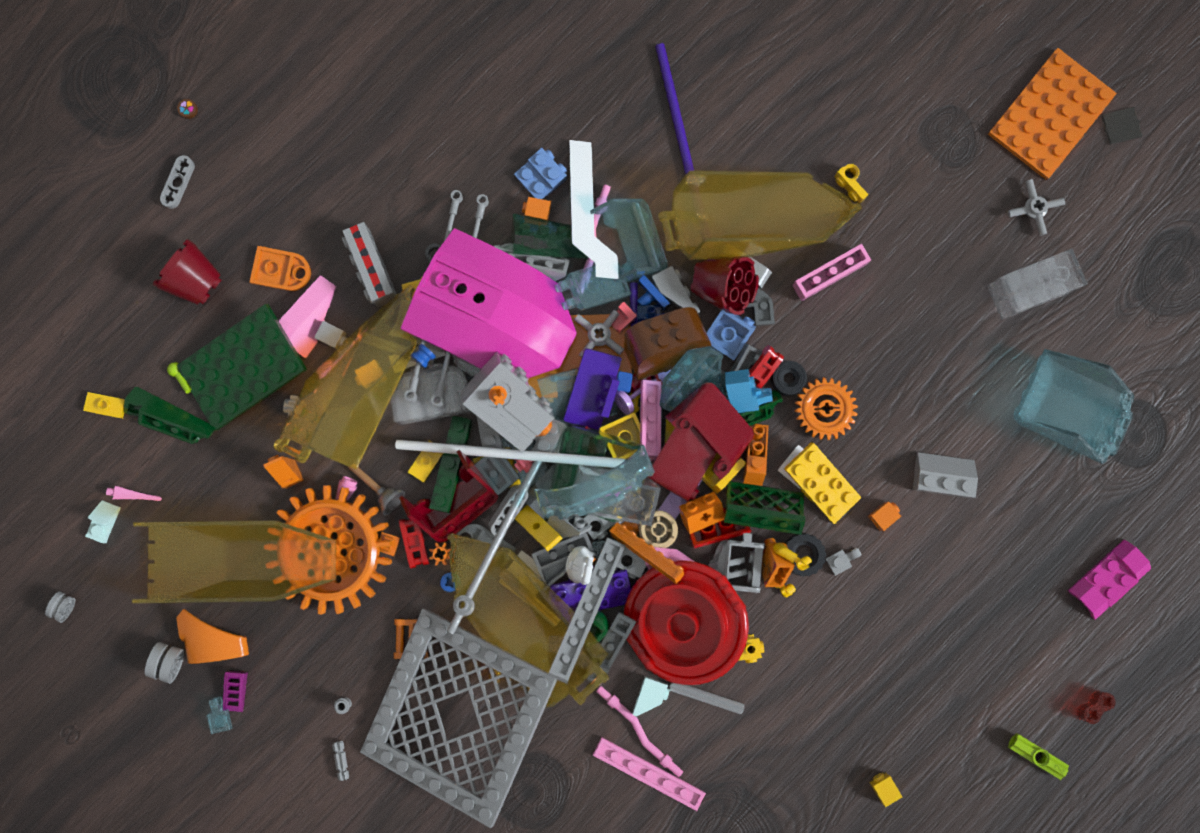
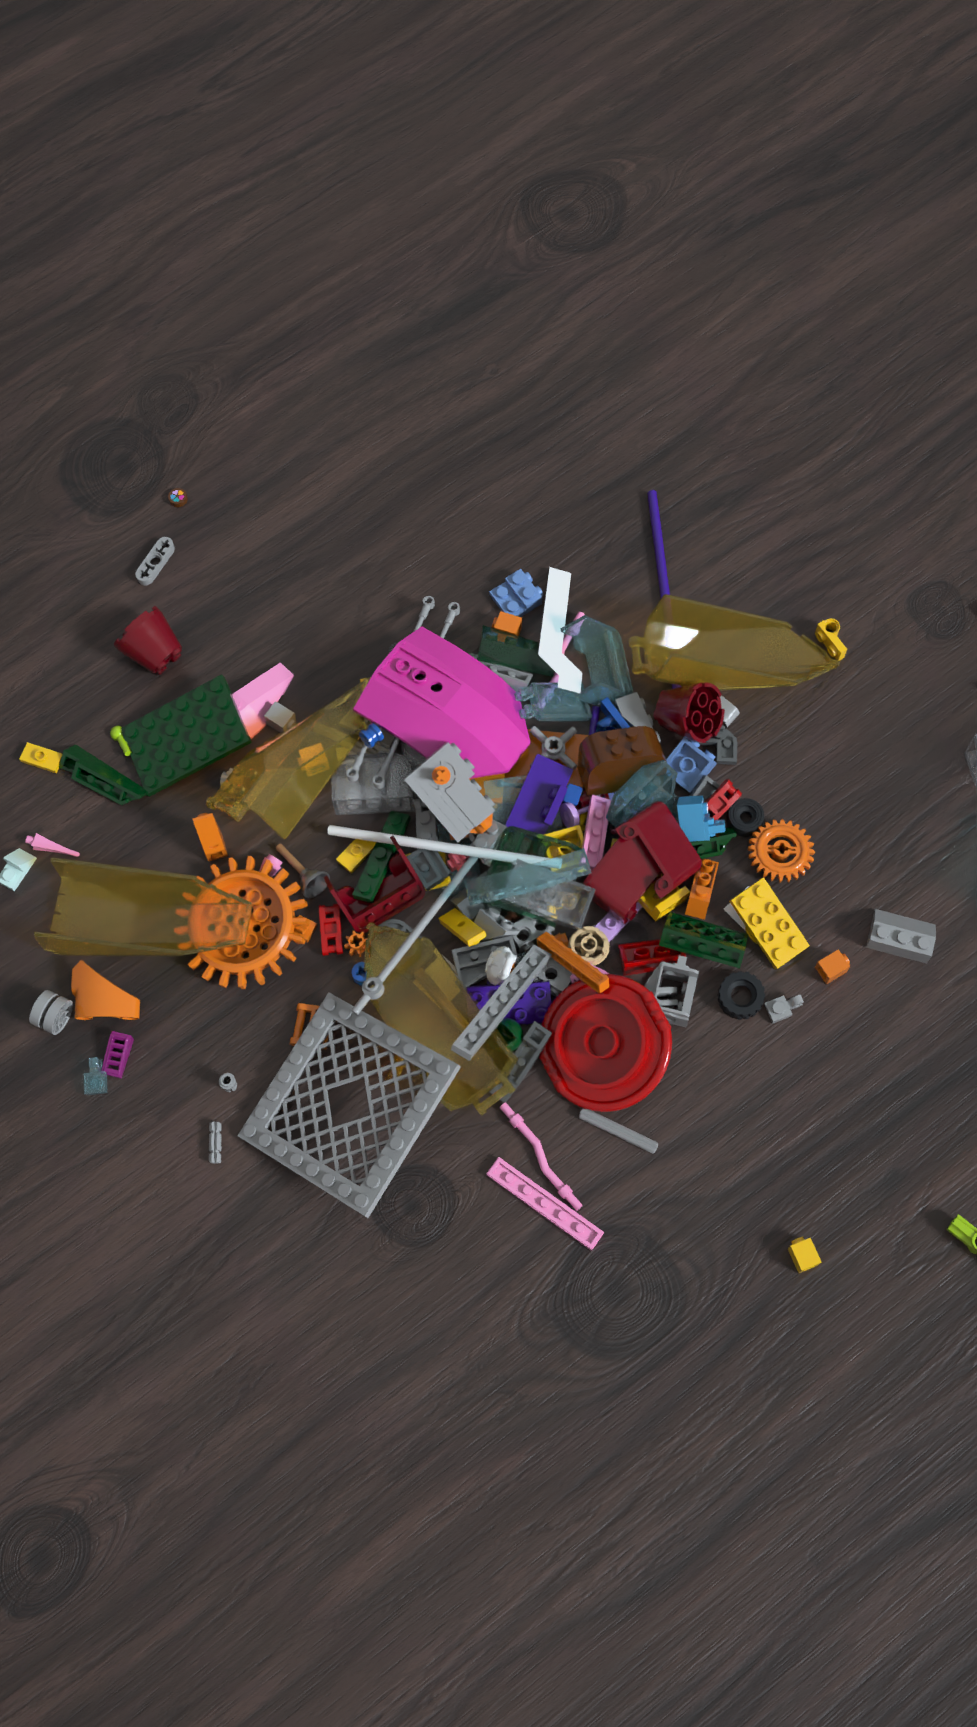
camera: 15 degrees right, 15 degrees down
(278, 269) = (239, 652): orange tile -> none
(368, 261) = (330, 654): light grey brick -> none
(496, 520) = (419, 915): light grey beam -> none
(625, 318) = (583, 731): coral panel -> none
(650, 695) = (557, 1118): light aqua slope -> none
(701, 512) = (637, 935): orange brick -> none
(755, 653) = (672, 1090): yellow brick -> none
(778, 565) = (710, 999): torso -> none
(831, 272) = (801, 718): bright pink brick -> none

